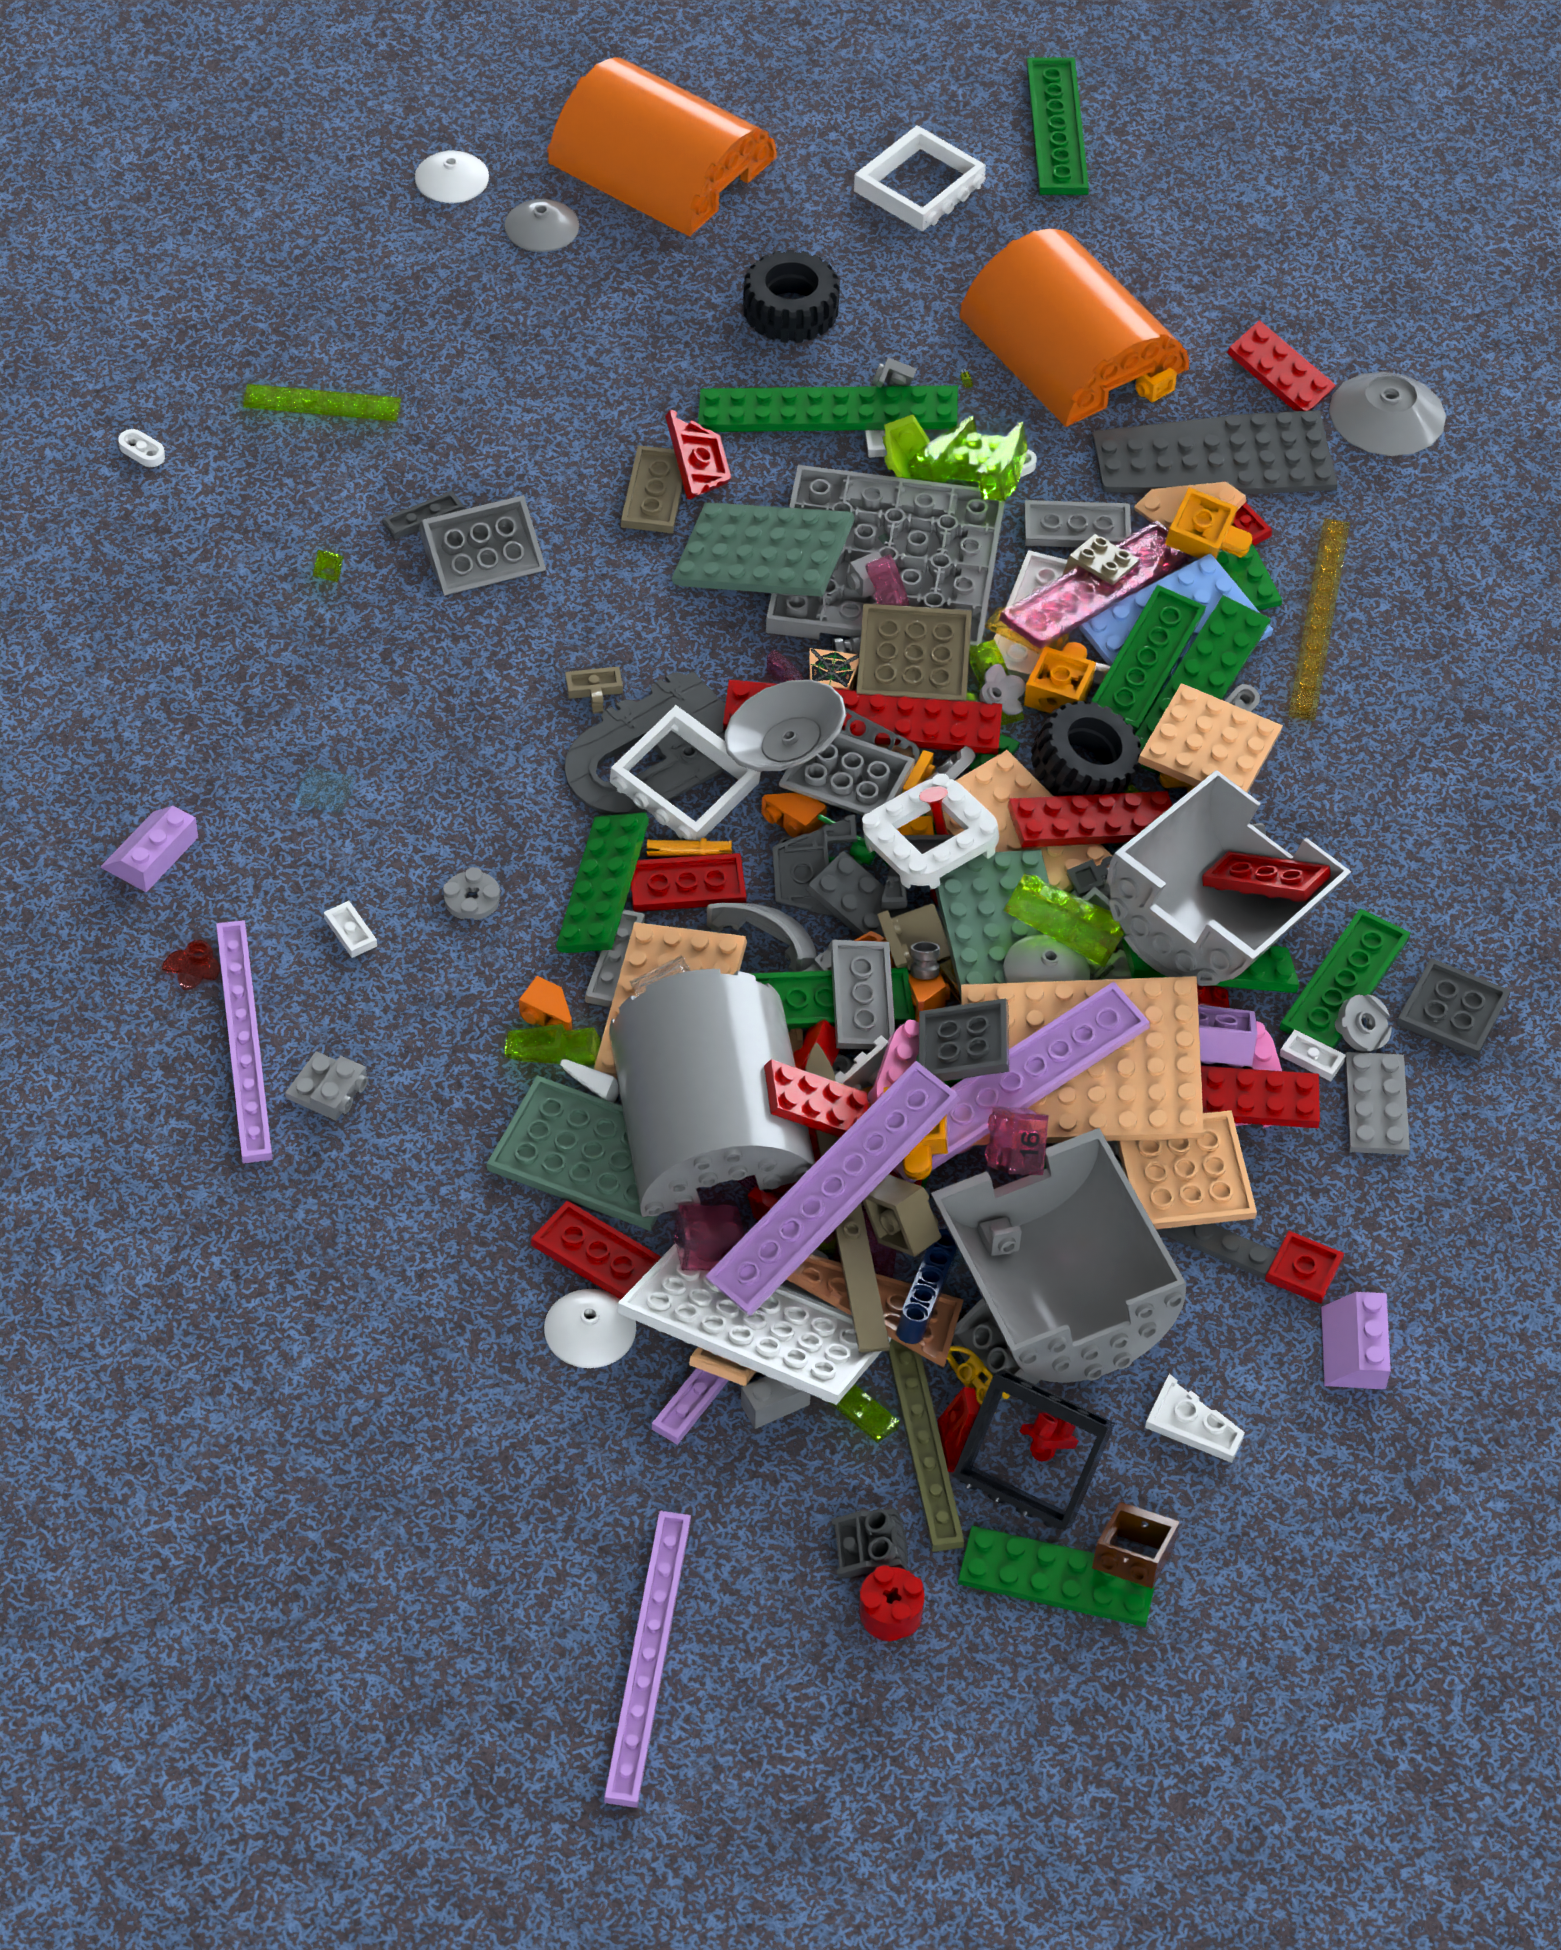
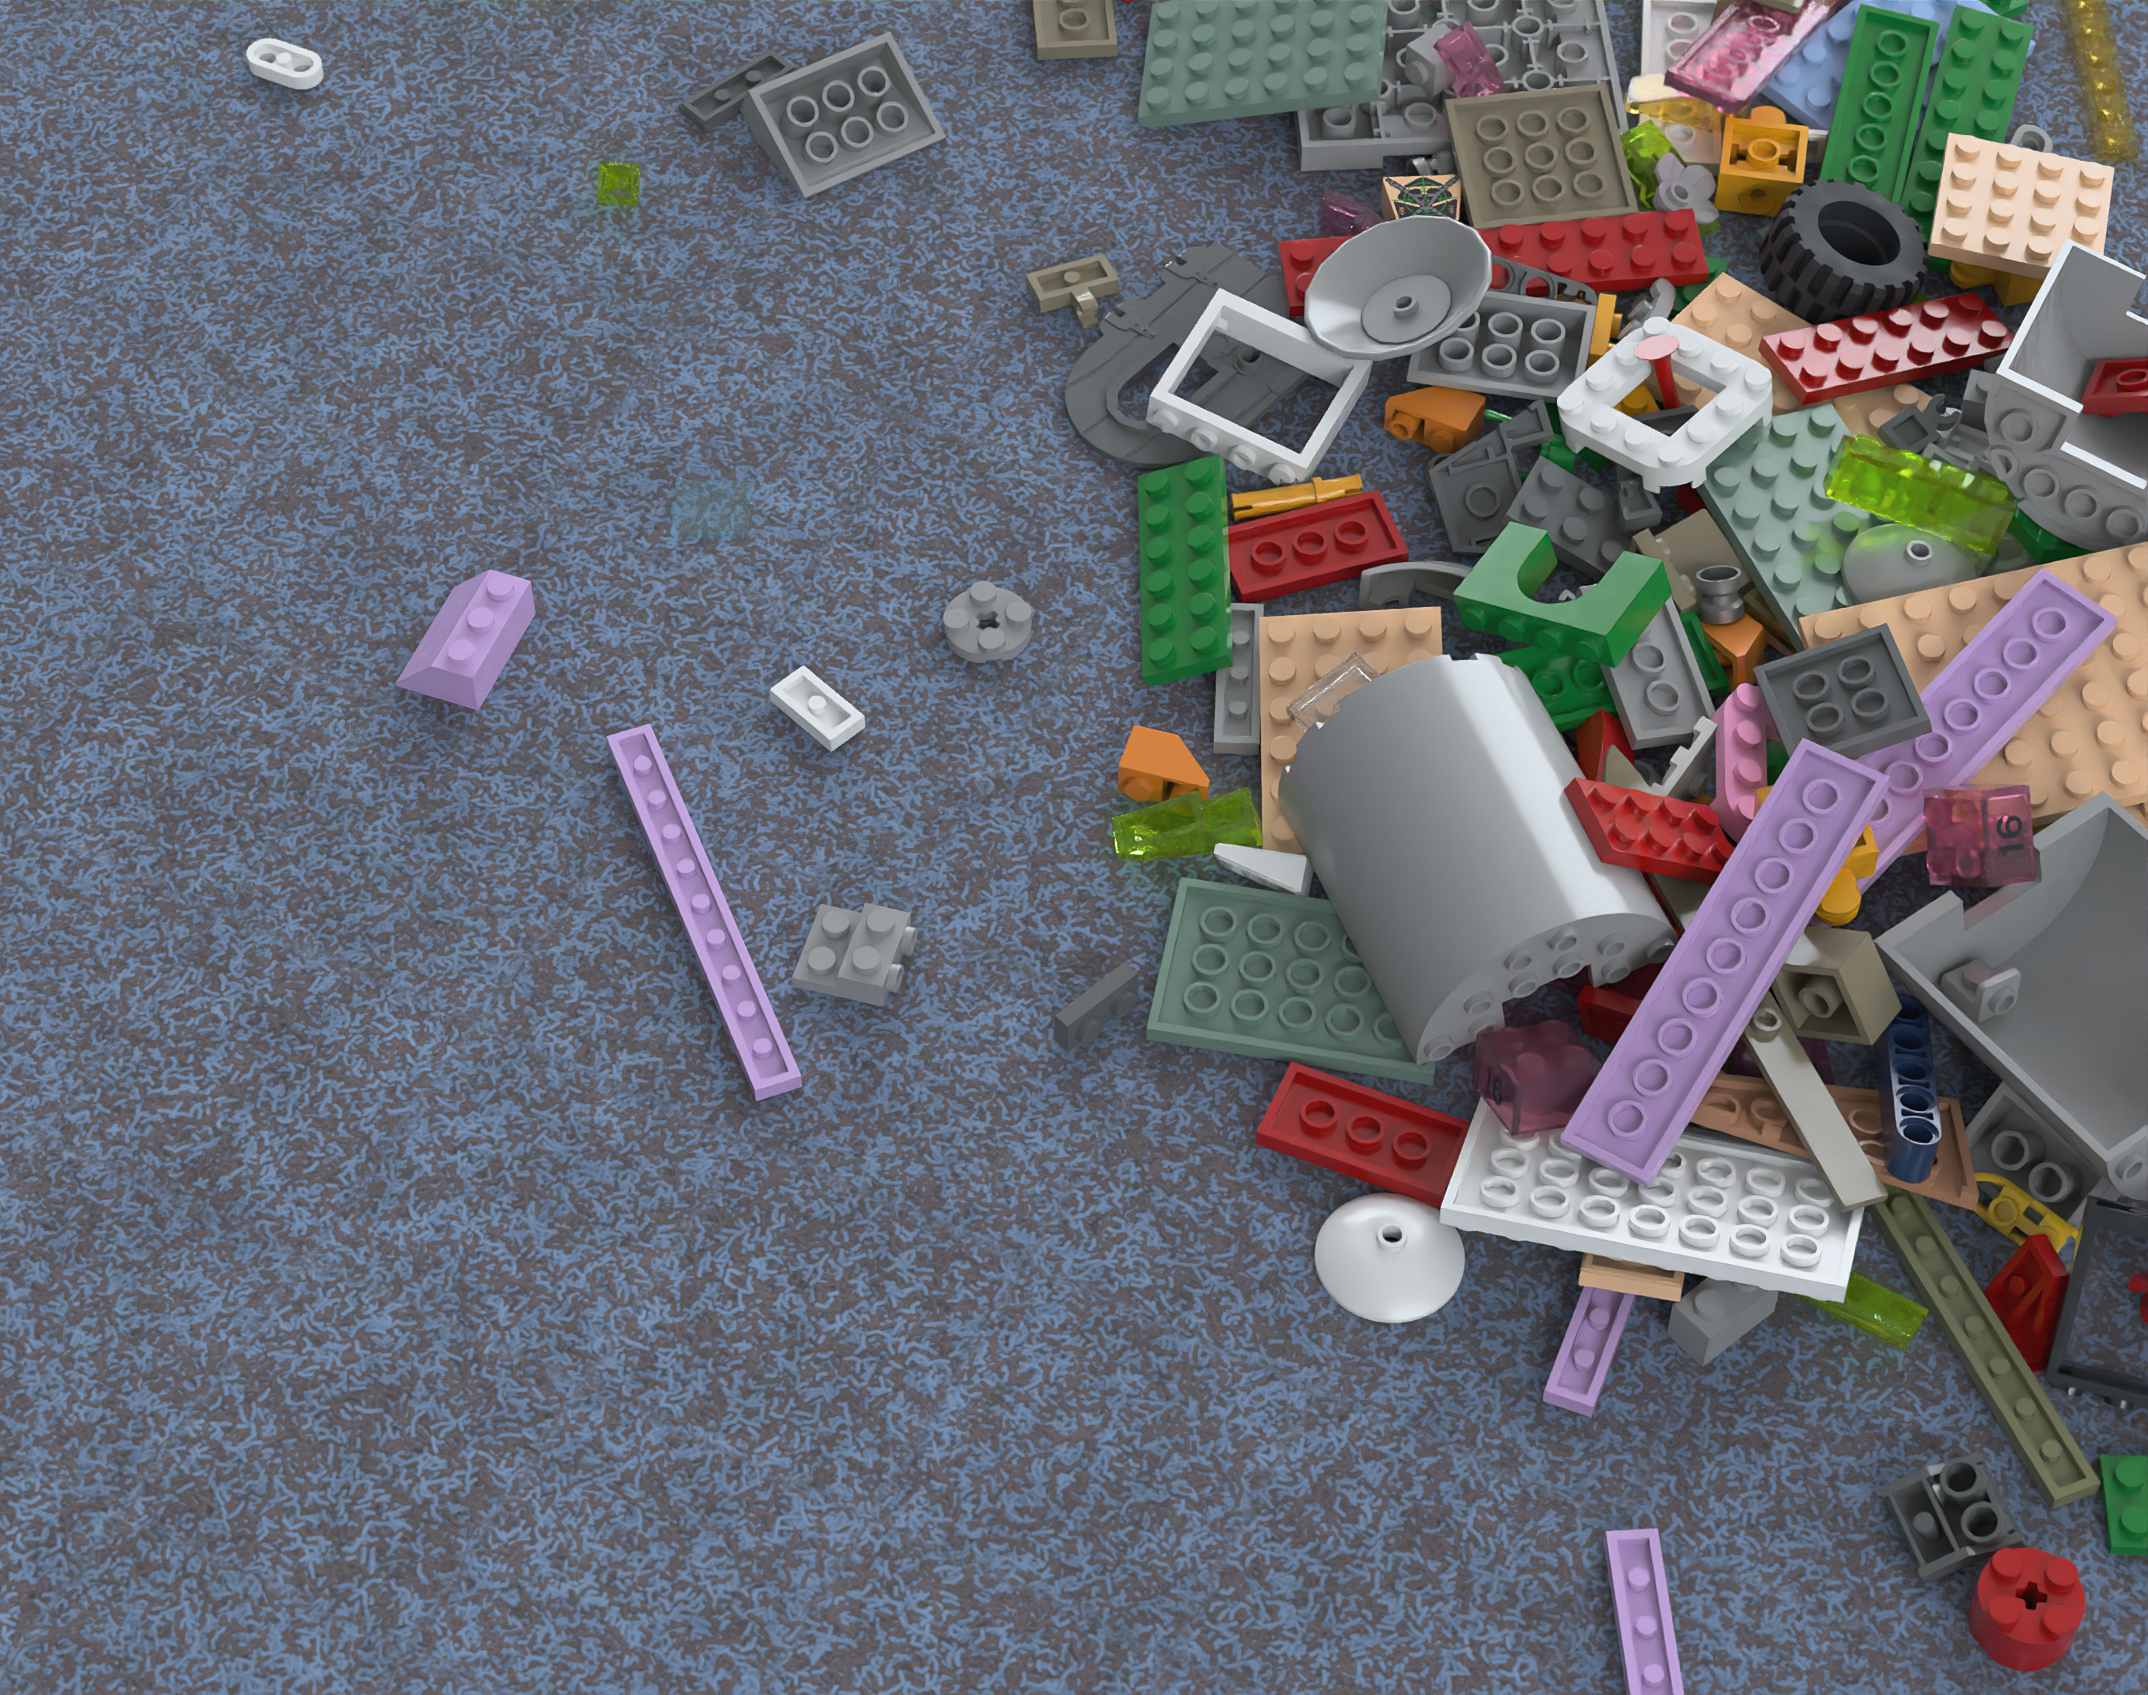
camera: 10 degrees left, 0 degrees up
(193, 968) = (583, 811): clear red plate -> none
(469, 1141) = (1087, 1014): none -> dark grey plate
(827, 967) = (1592, 627): none -> green arch

